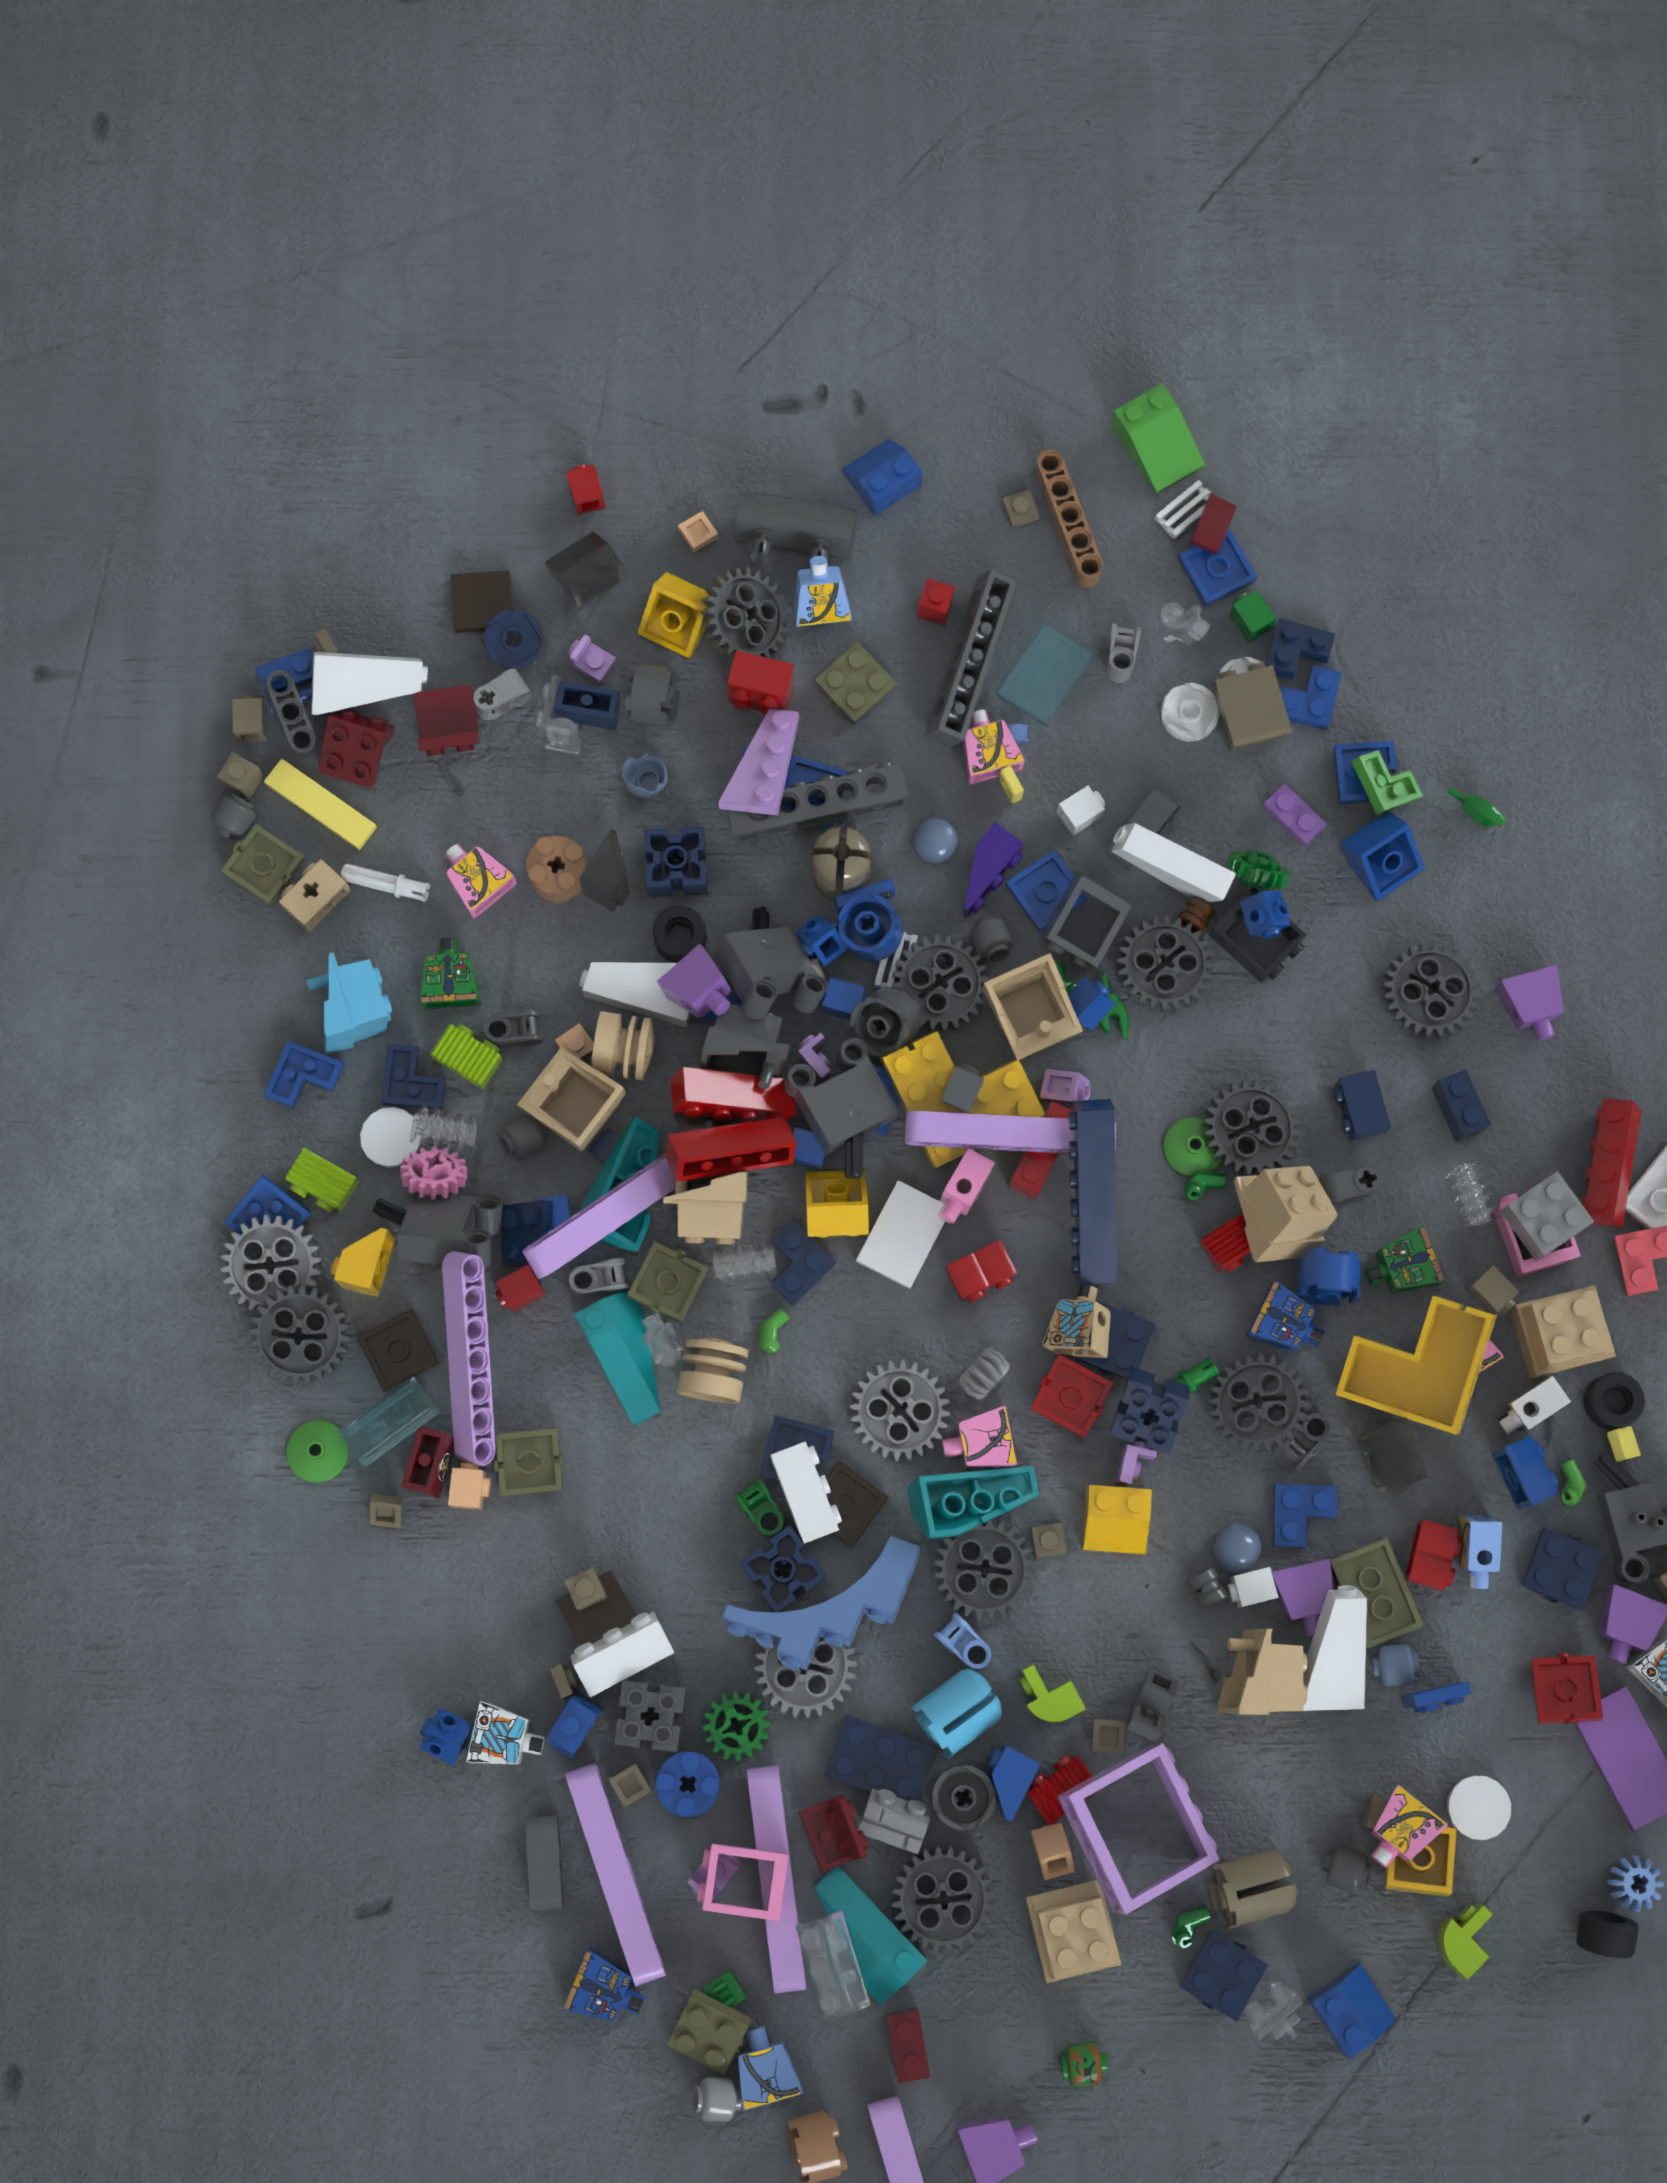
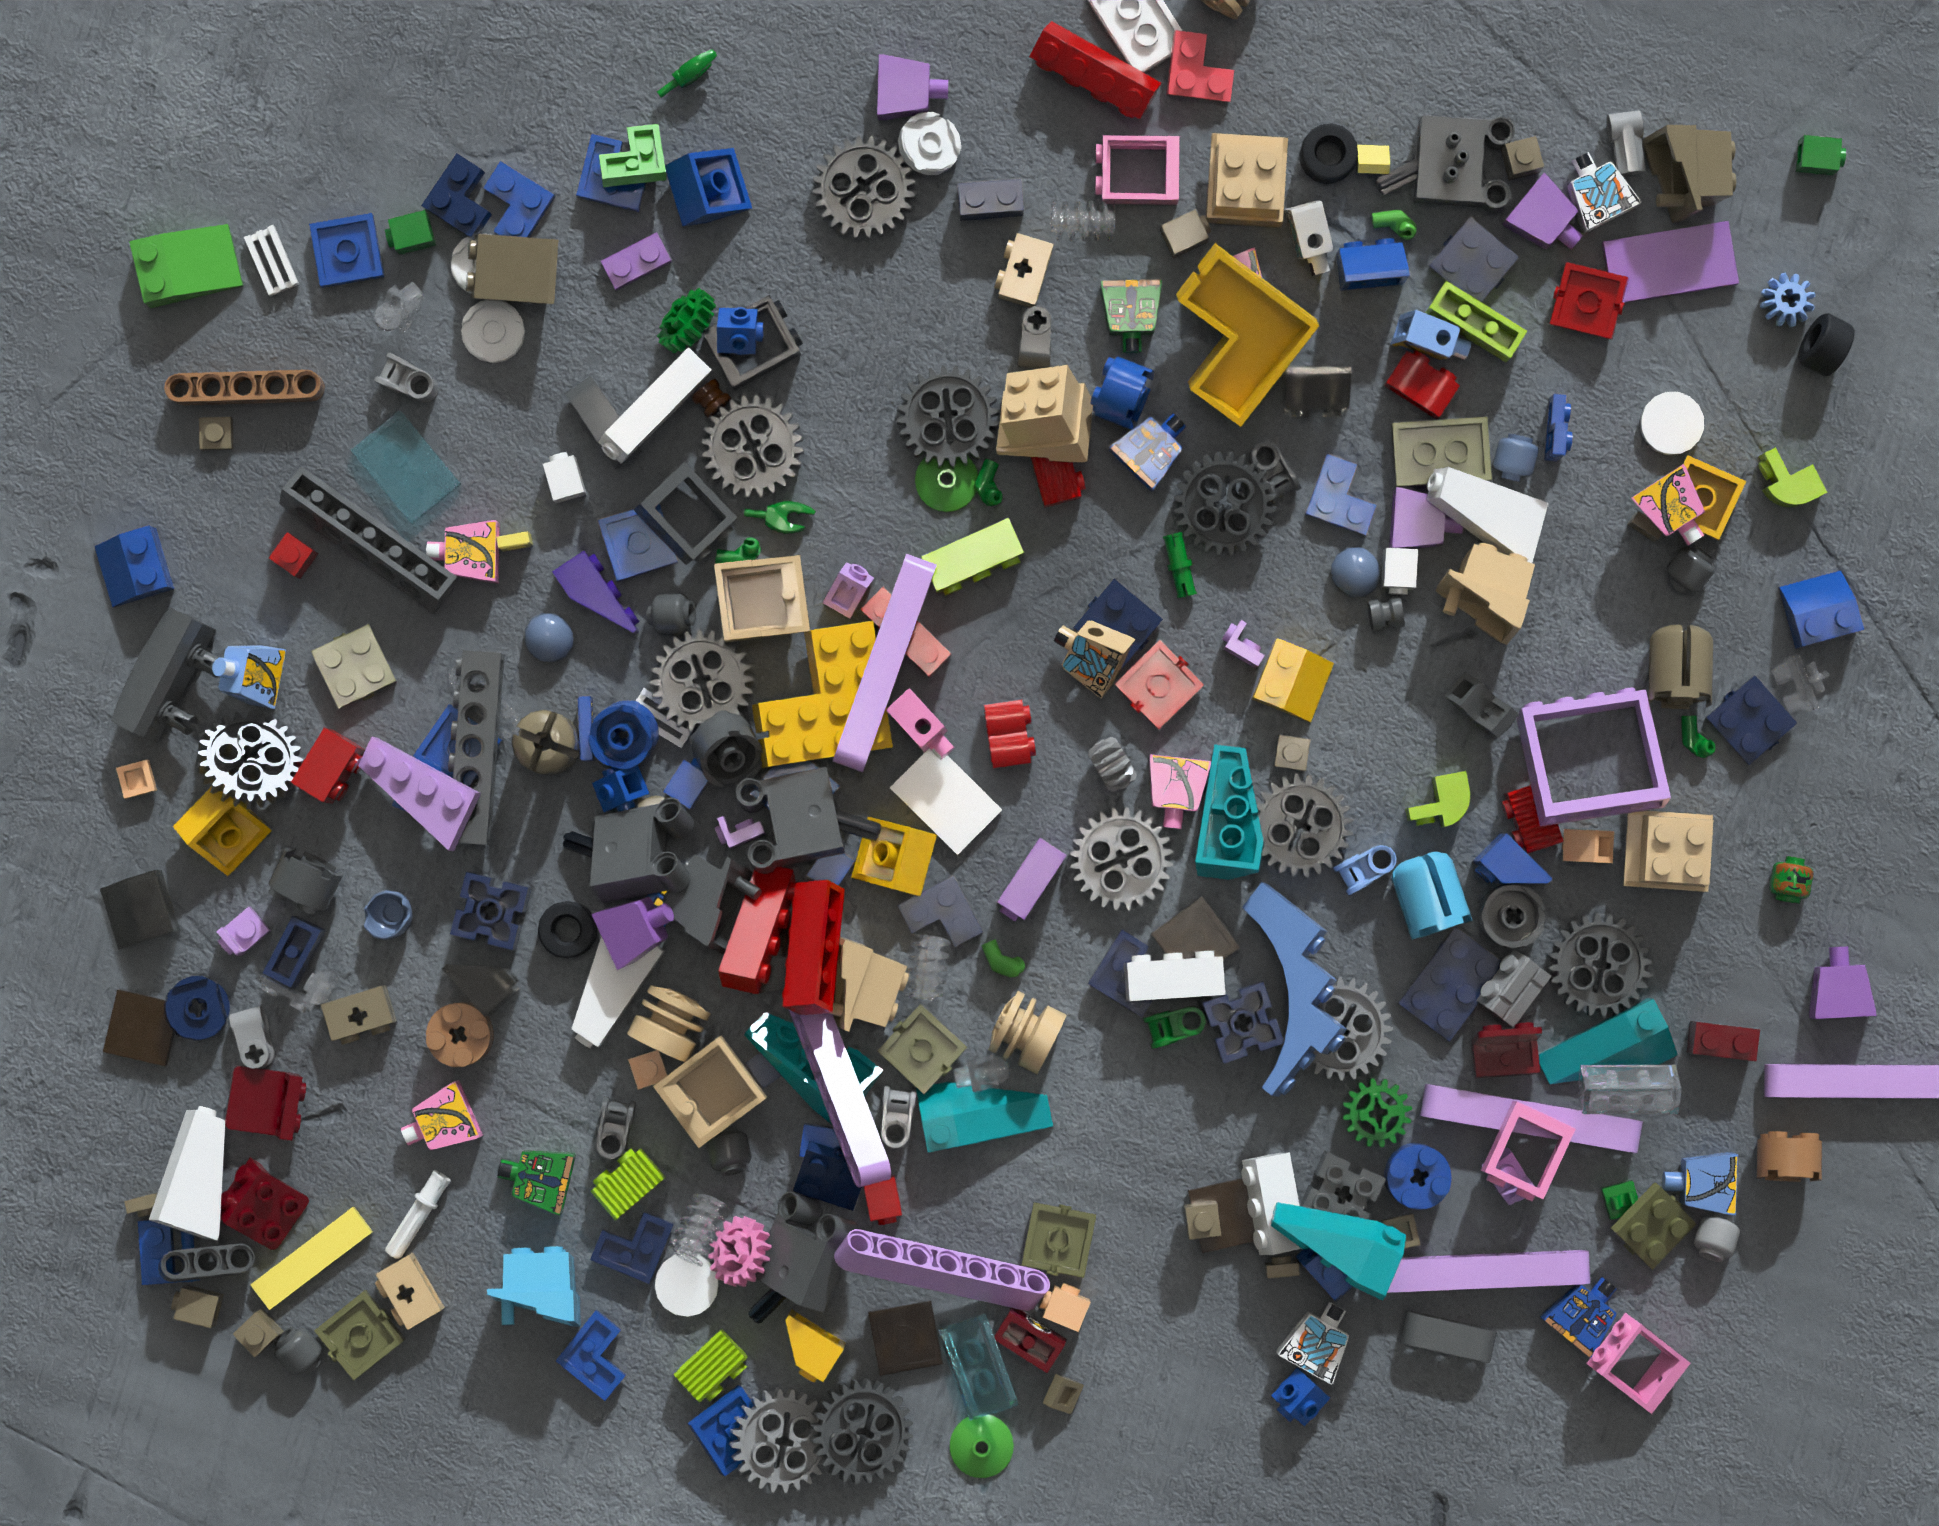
camera: 70 degrees left, 10 degrees up
(543, 762) = (340, 1011): none -> dark tan brick
(550, 2079) = (1667, 1366): none -> bright pink window
(585, 489) = (51, 883): red brick -> none
(603, 1741) = (1355, 1245): none -> teal wedge
(853, 1331) = (1030, 880): none -> window
(961, 1087) = (825, 697): dark grey brick -> none
(1019, 732) = (460, 515): medium blue piece -> none
(1090, 1002) = (770, 536): blue brick -> none
(1094, 1191) = (968, 598): dark blue brick -> none
(1108, 1736) = (1496, 756): dark tan plate -> none
(1140, 1195) = (974, 557): none -> brick
(1144, 1394) = (1199, 613): dark blue brick -> none
(1213, 524) = (299, 239): dark red slope -> none
(1361, 1105) = (959, 299): dark blue brick -> none
(1393, 1164) = (1037, 256): none -> tan brick
(1491, 1036) = (929, 143): none -> white tile
(1509, 1588) = (1477, 321): none -> lime brick
(1546, 1216) = (1132, 157): light grey brick -> none

